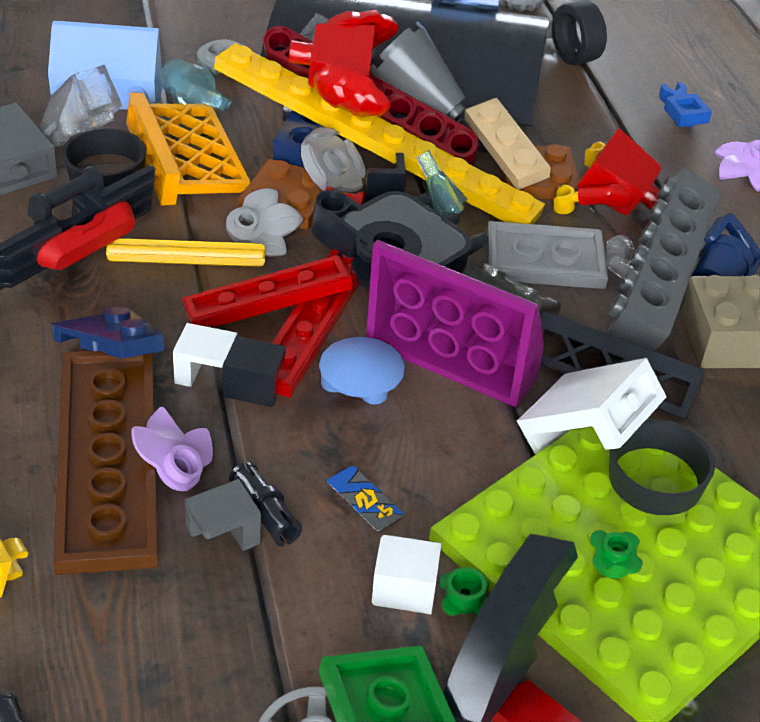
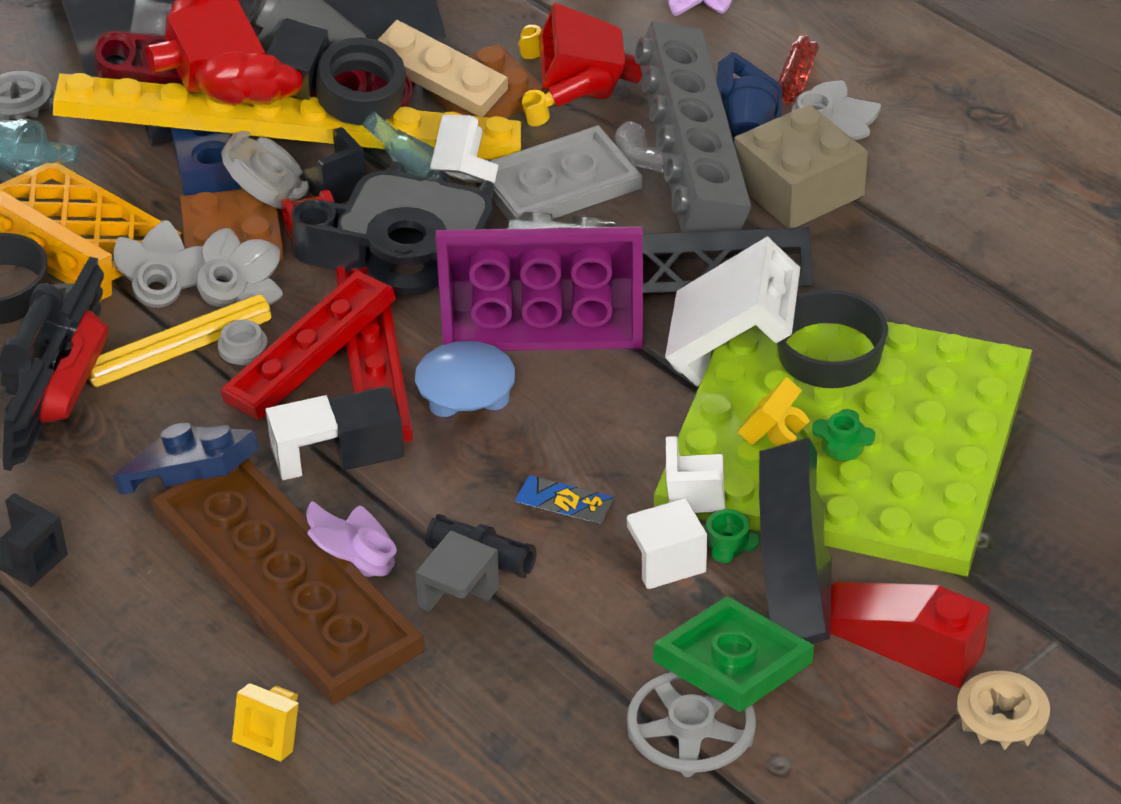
camera: 25 degrees left, 0 degrees up
(217, 192) = (161, 260): none -> light grey plate
(224, 270) = (241, 342): none -> light grey plate
(404, 90) = (301, 48): none -> black panel
(439, 105) = (363, 55): none -> black tyre
(460, 531) = (695, 478): none -> white panel
(479, 203) = (458, 149): none -> white panel
(565, 507) = (773, 416): none -> yellow tile

